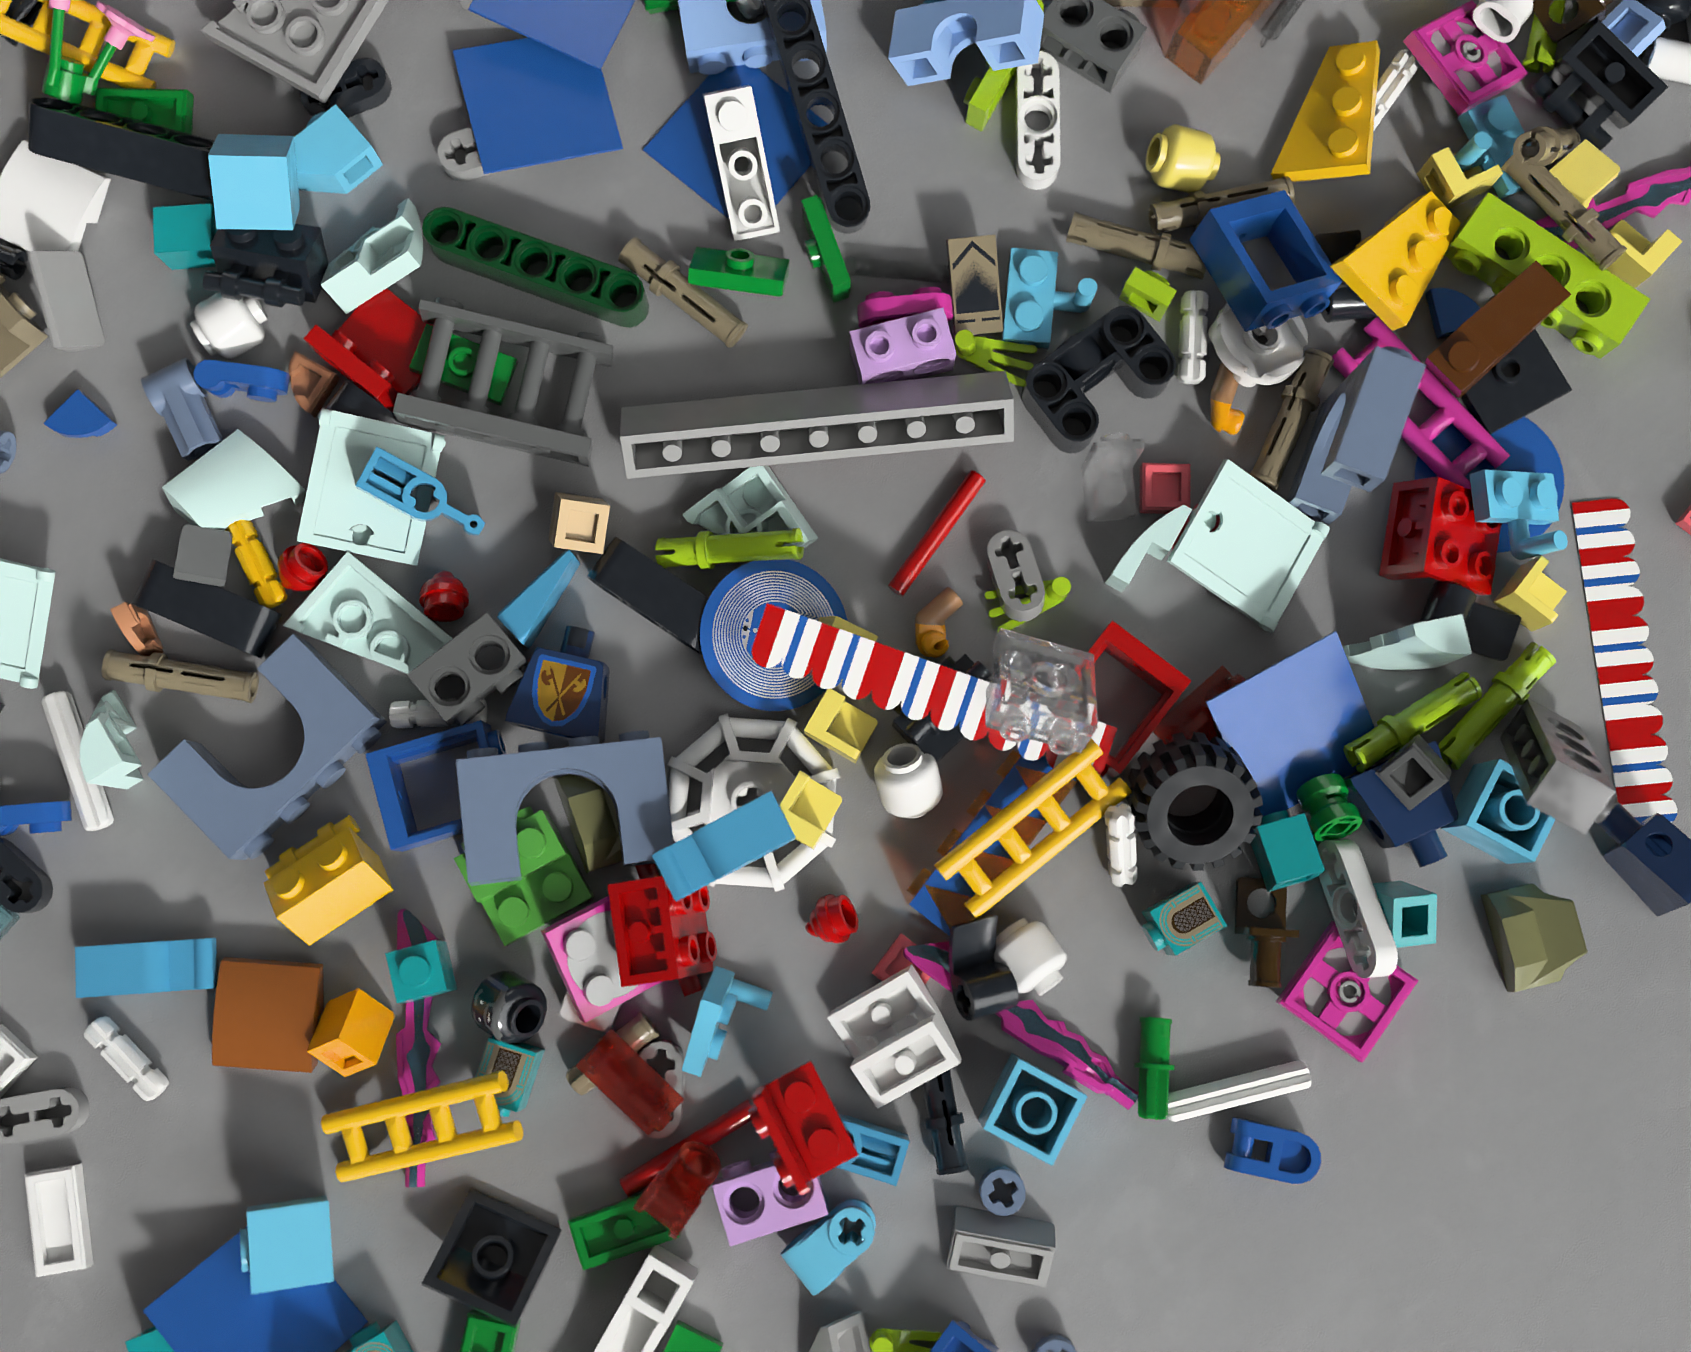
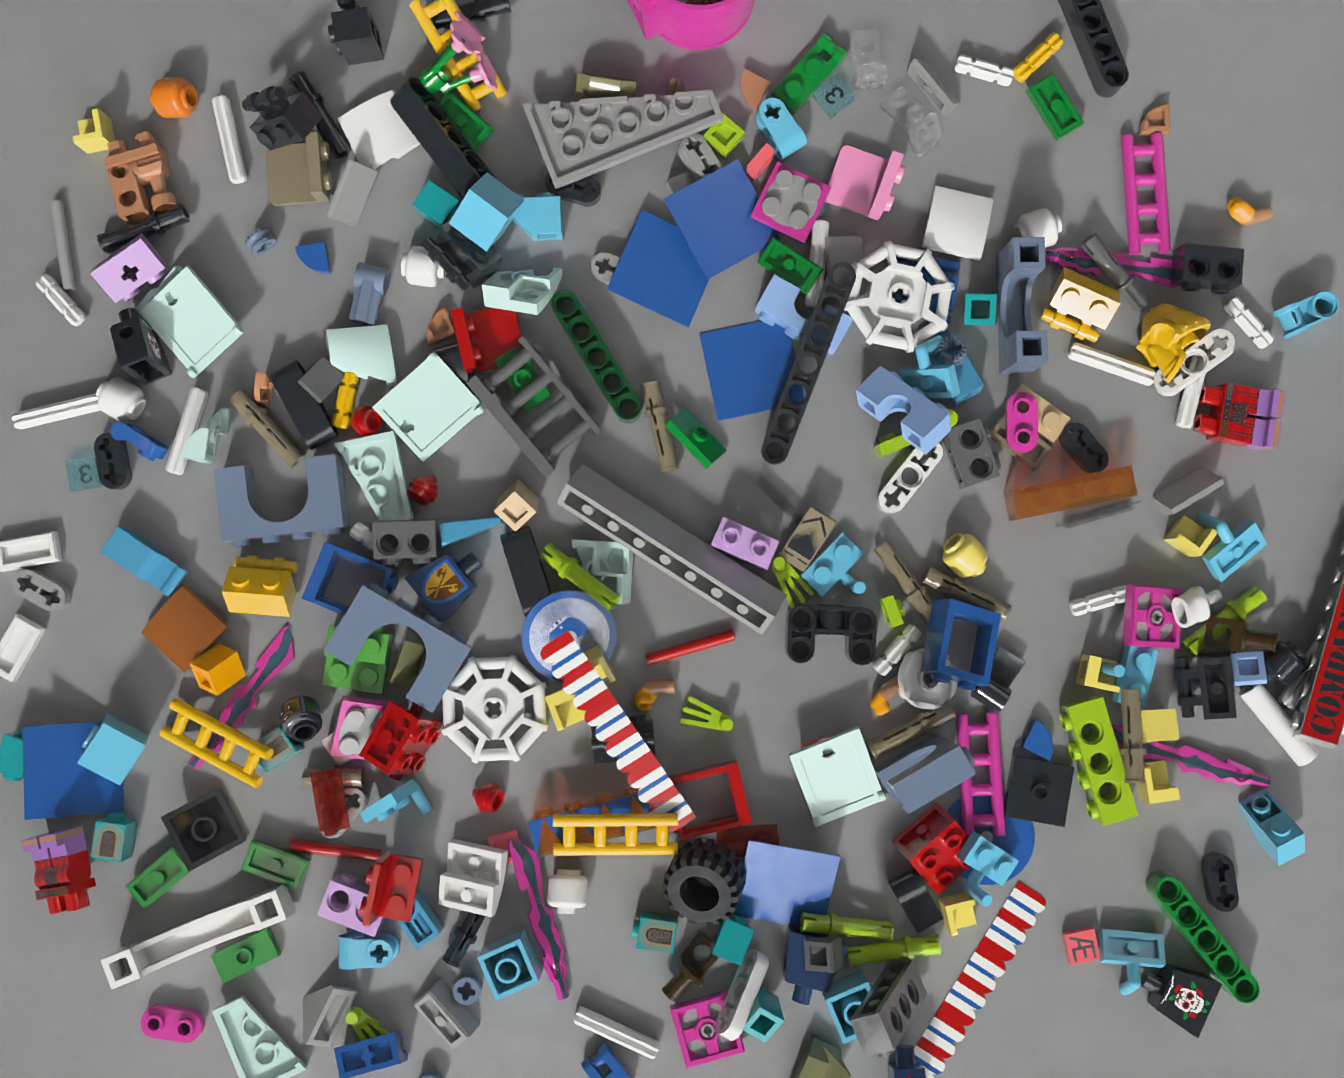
camera: 35 degrees right, 5 degrees up
(126, 1058) = (103, 596): white axle -> none
(224, 378) = (415, 309): blue plate -> none
(400, 498) = (441, 416): dark azure piece -> none
(421, 971) = (272, 668): teal brick -> none
(680, 1187) = (314, 869): clear red piece -> none
(724, 846) = (458, 729): dark azure piece -> none
(741, 162) = (741, 381): white slope -> none
(809, 809) = (514, 737): light yellow panel -> none
(823, 248) = (746, 460): green plate -> none
(885, 307) = (752, 515): dark pink plate -> none
(908, 781) = (575, 761): white head -> none
(978, 981) = (533, 884): black panel -> none
(1025, 572) = (716, 703): light grey beam -> none
(1042, 692) = (669, 774): clear plate -> none
(1109, 478) = (794, 691): clear bracket -> none
(1121, 845) = (653, 874): white axle -> none
(1154, 1068) = (585, 990): green axle -> none
(1155, 541) = (796, 738): light aqua slope -> none
(1164, 487) = (821, 714): coral tile -> none
(1328, 806) = (770, 935): green wheel -> none
(1336, 118) = (1061, 595): yellow wing -> none
(1400, 259) = (1027, 696): yellow wing -> none
(1414, 646) = (881, 896): light aqua slope -> none
(1496, 329) = (1047, 770): reddish brown slope -> none
(1546, 145) = (1147, 698): dark tan pin -> none

